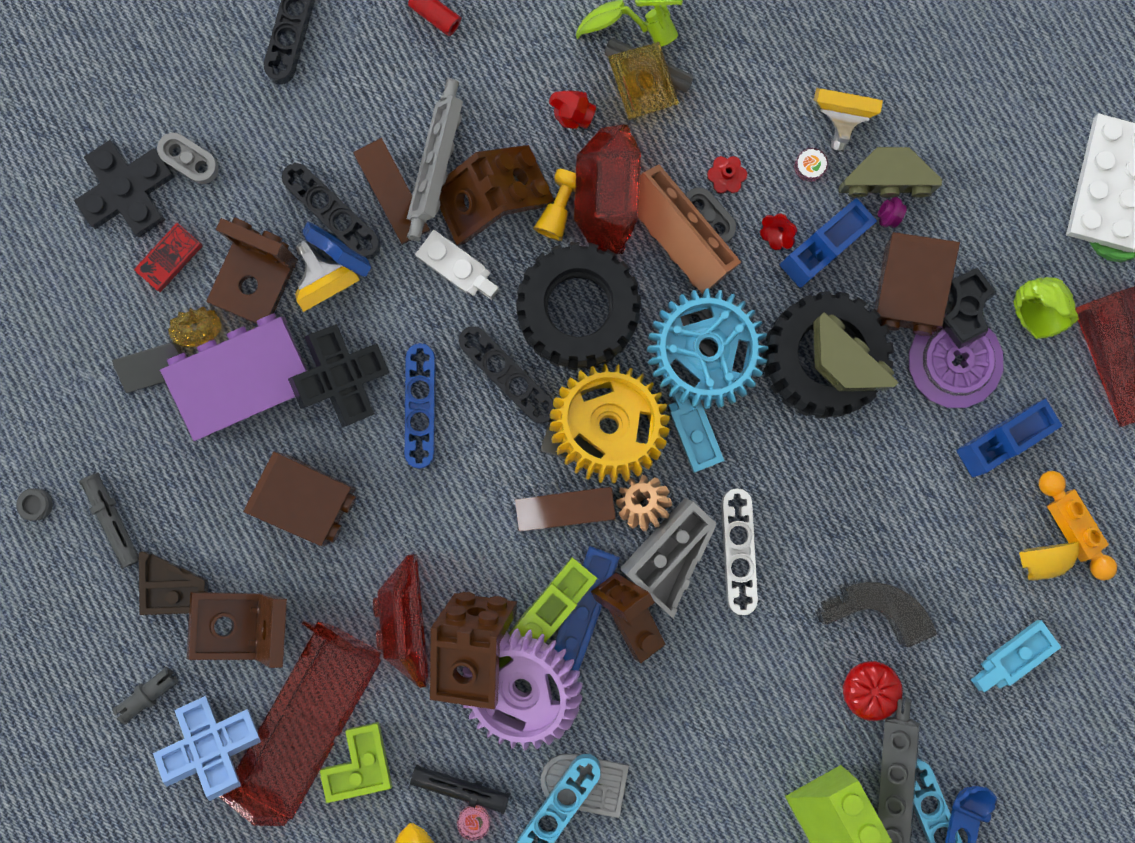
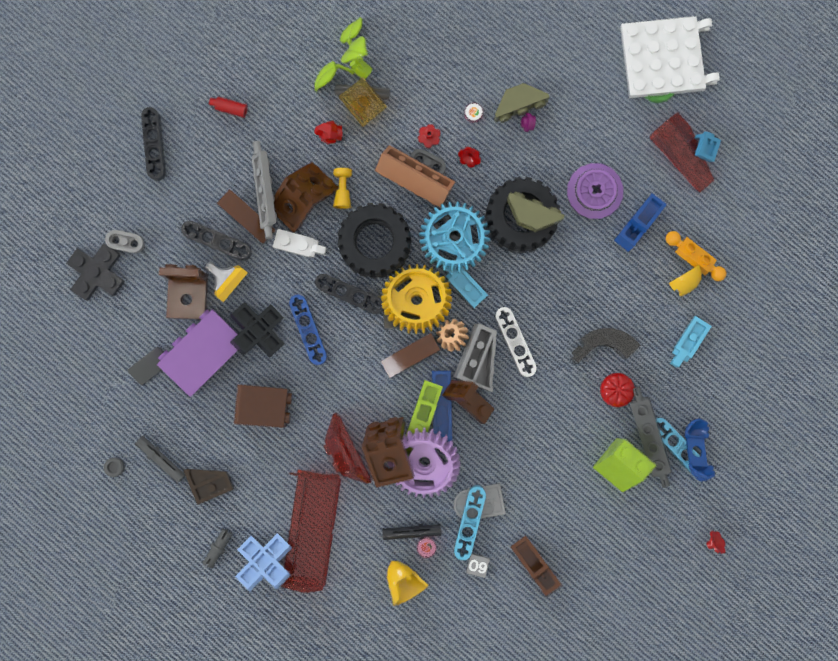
camera: 15 degrees left, 0 degrees up
(168, 257) = (135, 301): red tile -> none
(207, 327) = (173, 333): clear yellow gear -> none
(255, 631) = (265, 488): reddish brown bracket -> none
(336, 249) = (227, 260): blue tile -> none
(367, 770) = (356, 541): lime plate -> none
(608, 188) = (366, 169): clear red wedge -> none
(828, 242) = (499, 152): blue slope -> none
(845, 112) = (481, 76): yellow piece -> none
(915, 282) = (555, 157): reddish brown slope -> none
(966, 319) = (591, 166): black tile -> none
(1045, 307) = (632, 142): lime hair -> none

